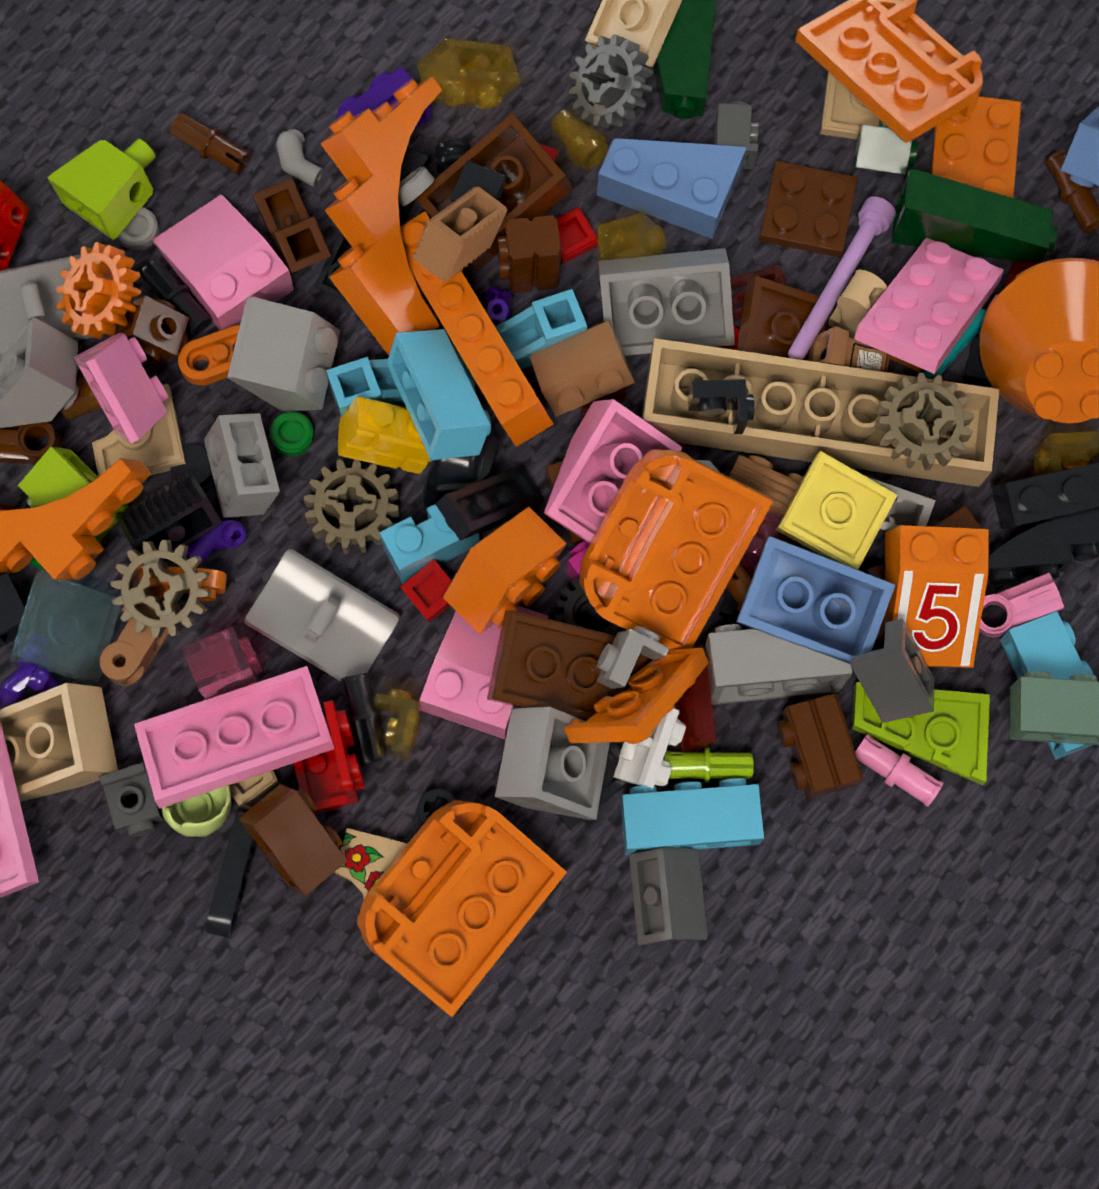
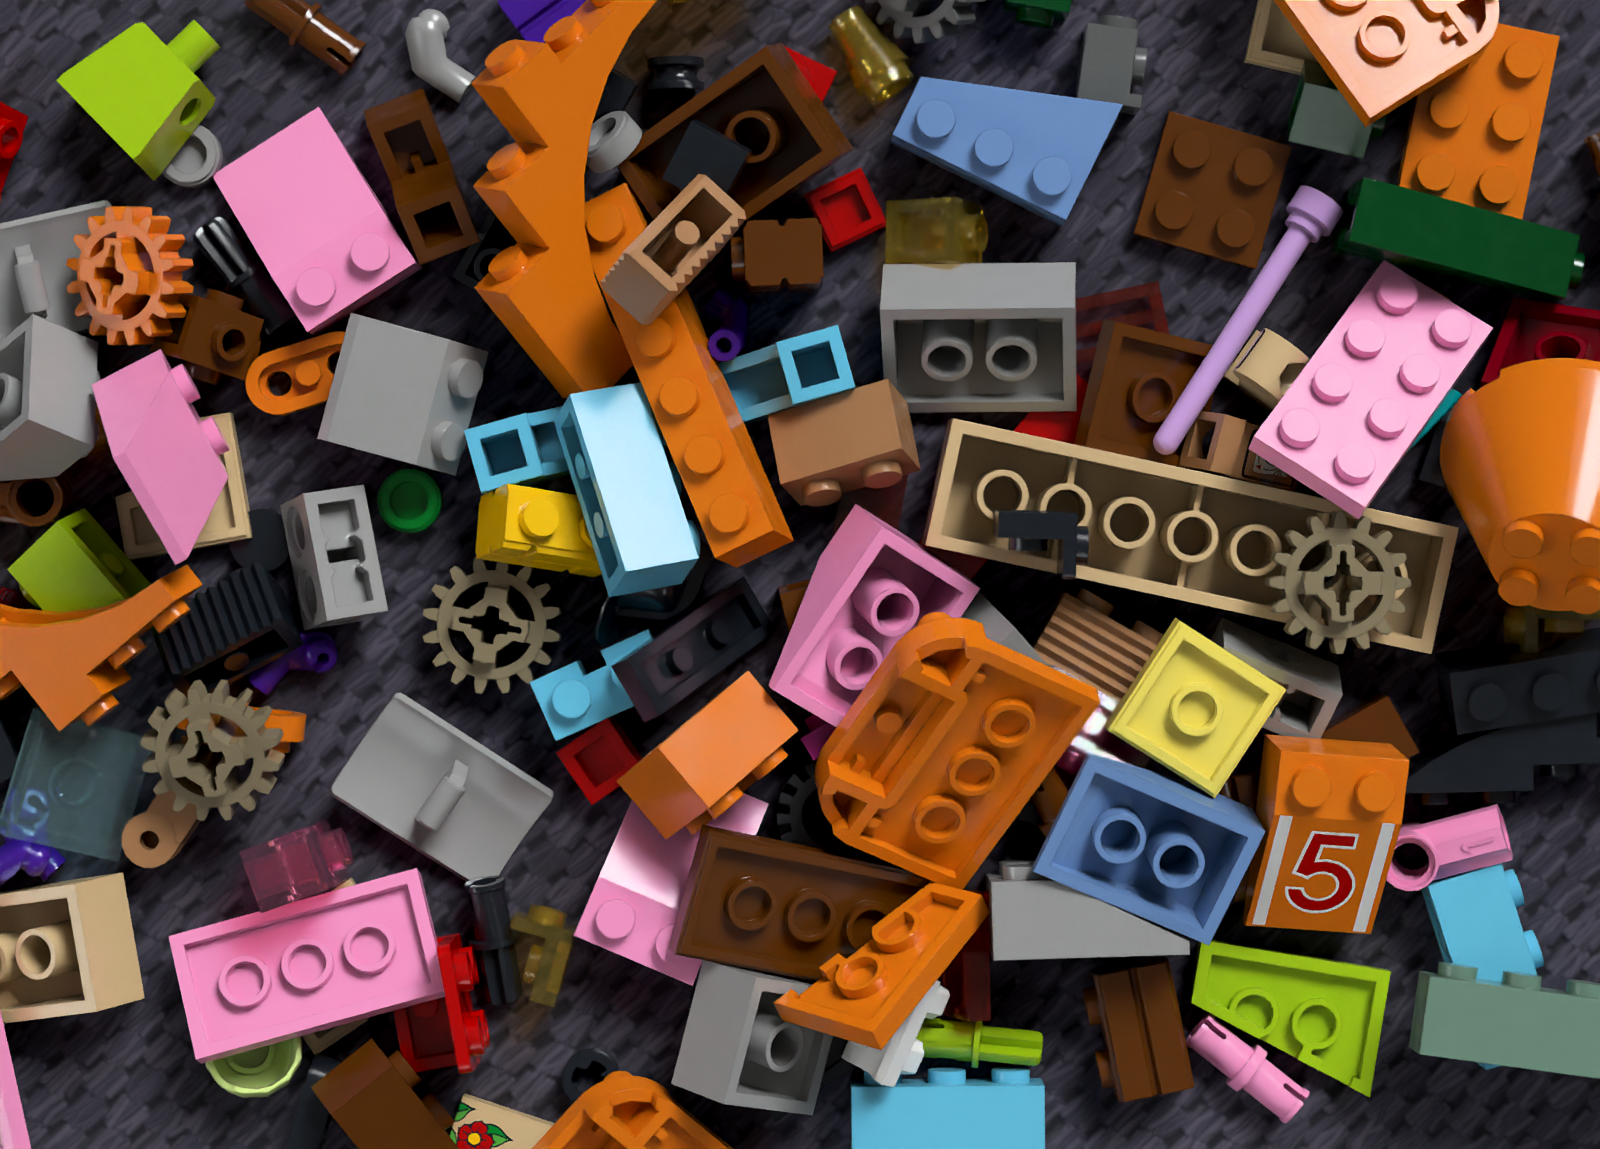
camera: 10 degrees right, 15 degrees up
(128, 781) = (160, 1015): dark grey brick -> none
(620, 657) = (863, 903): light grey bracket -> none
(896, 676) = (1264, 957): dark grey panel -> none

